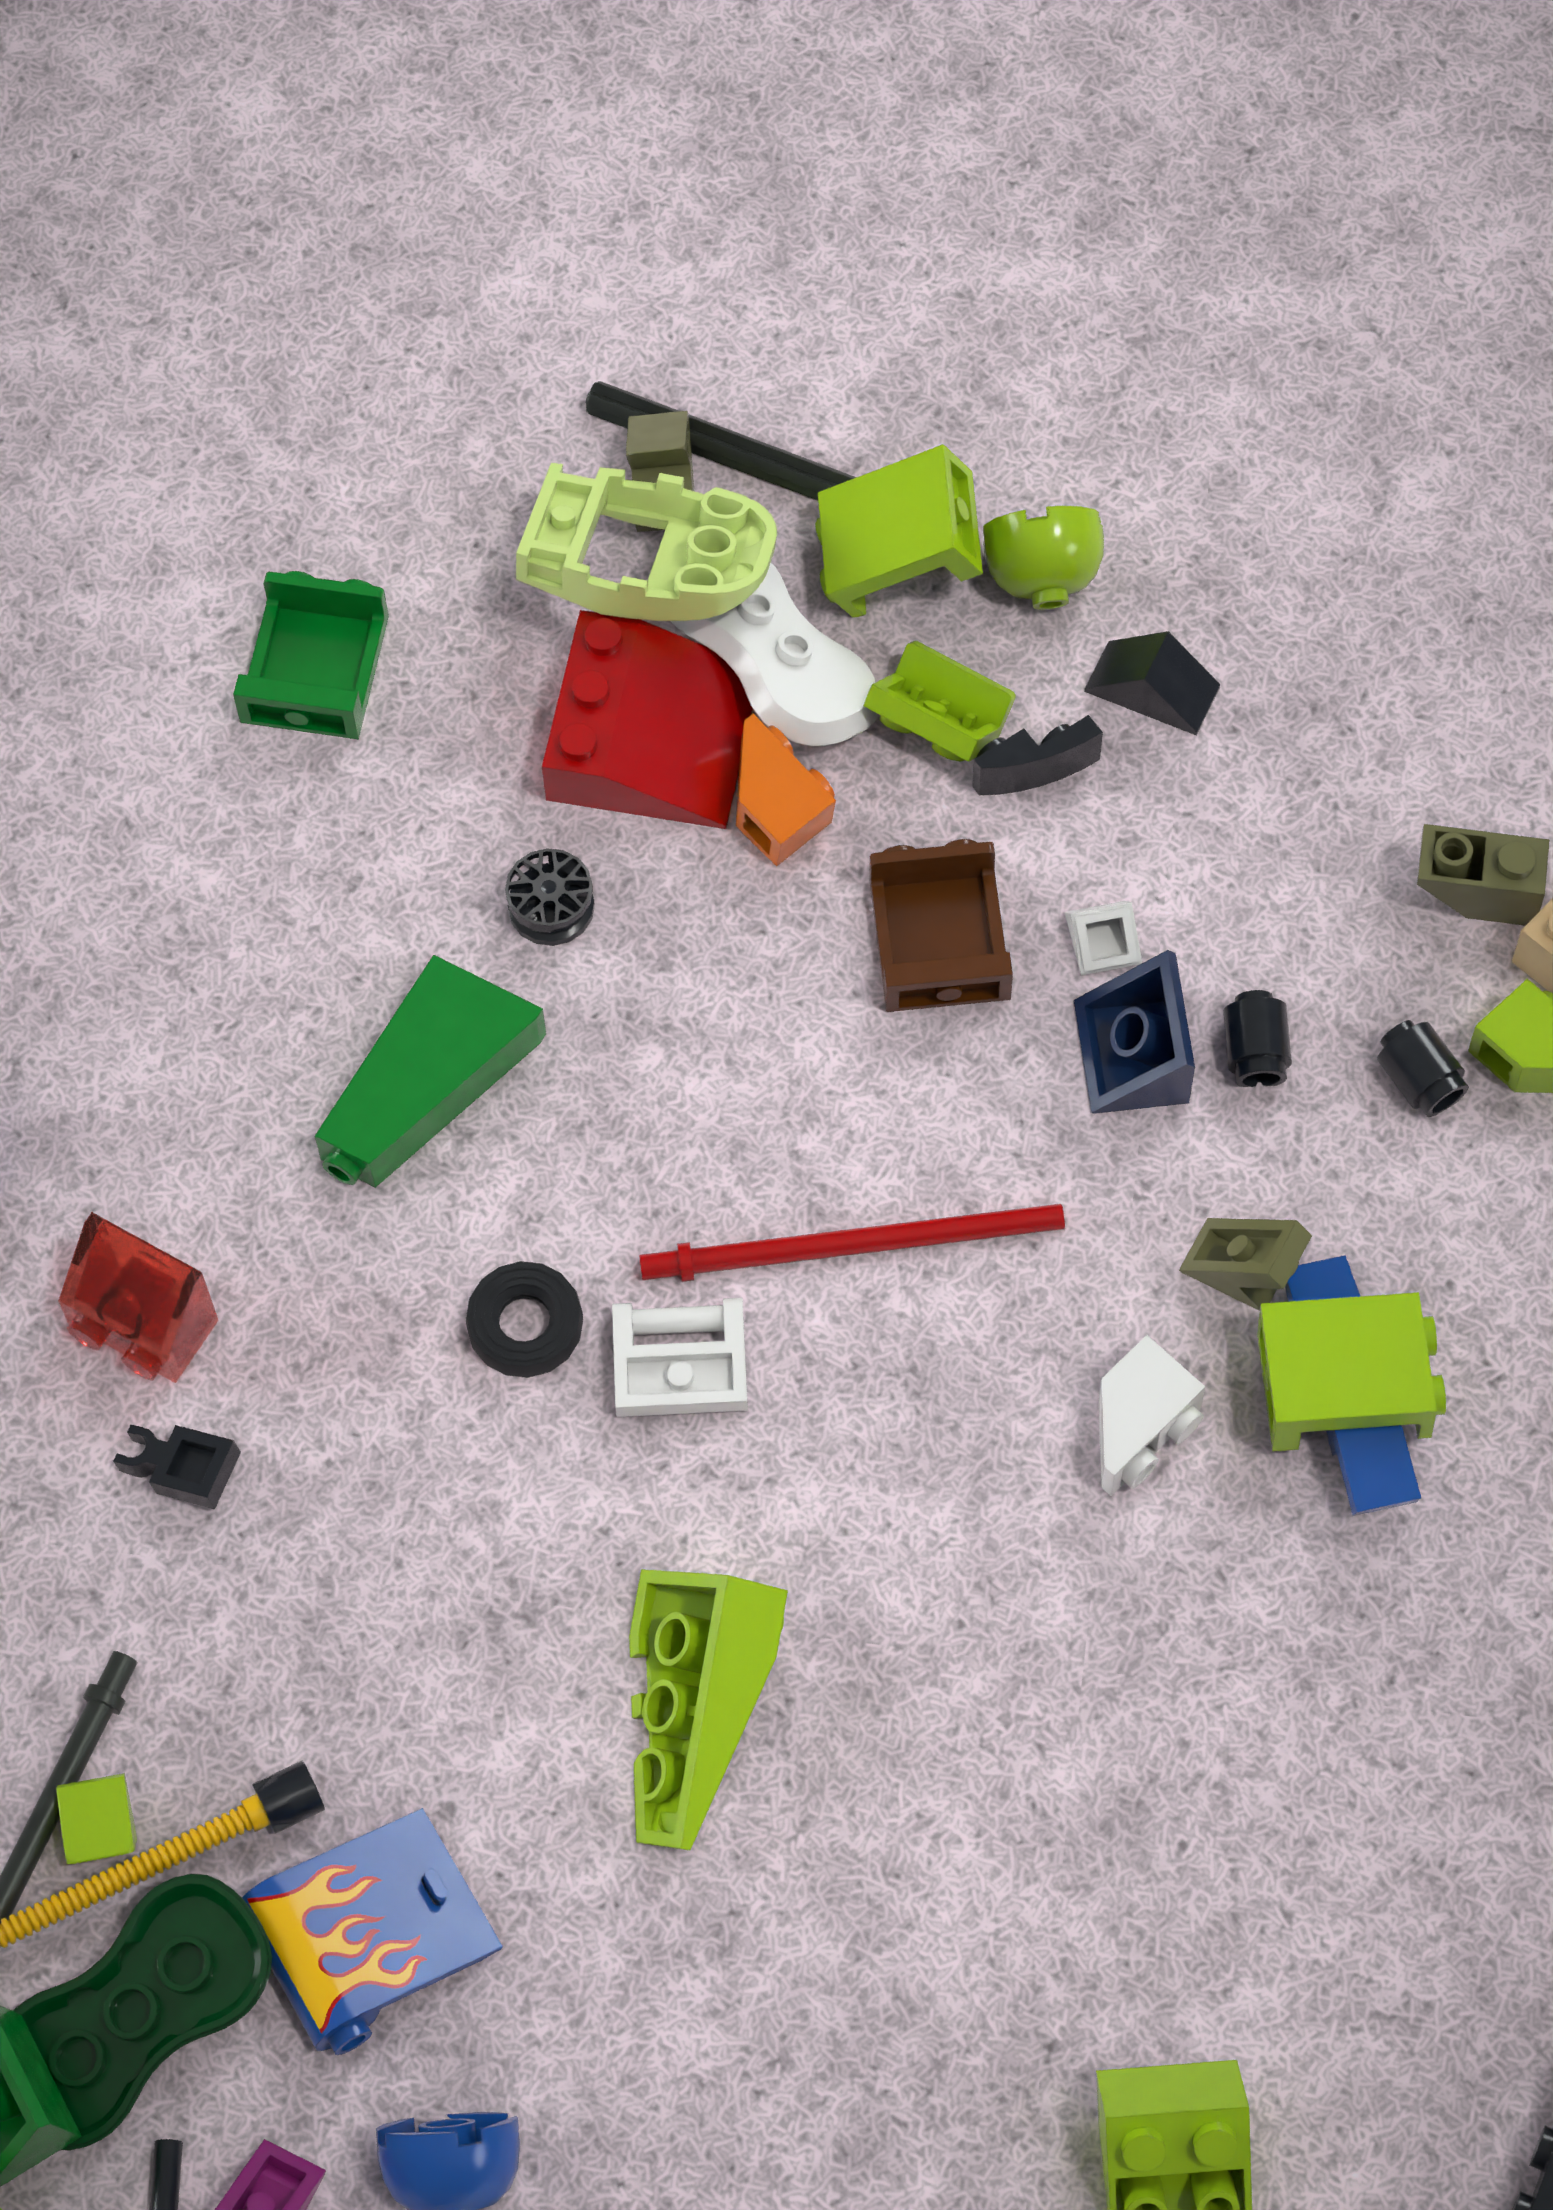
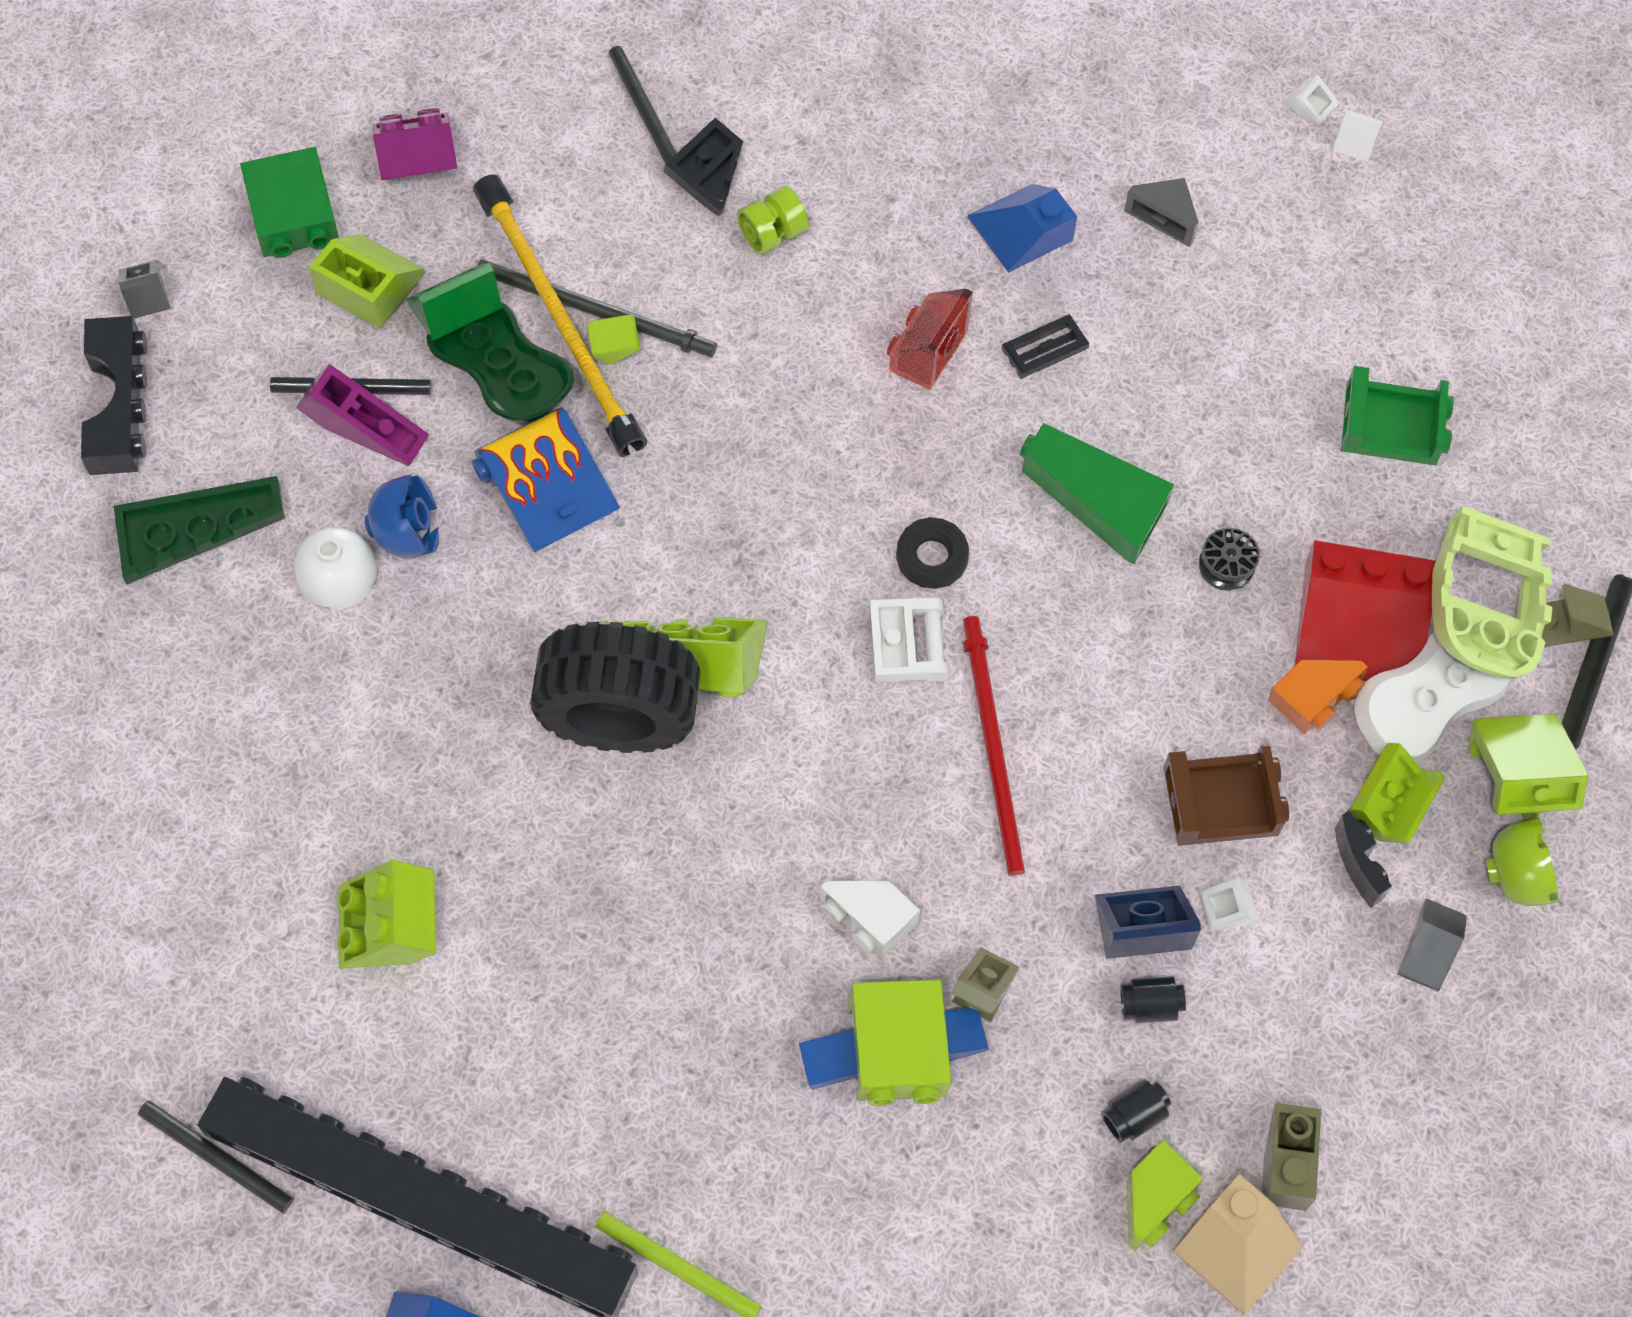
camera: 85 degrees right, 0 degrees up
(170, 1185) = (1017, 361): none -> black tile
(185, 1468) = (832, 372): black plate -> none
(808, 1766) = (615, 687): none -> black tyre

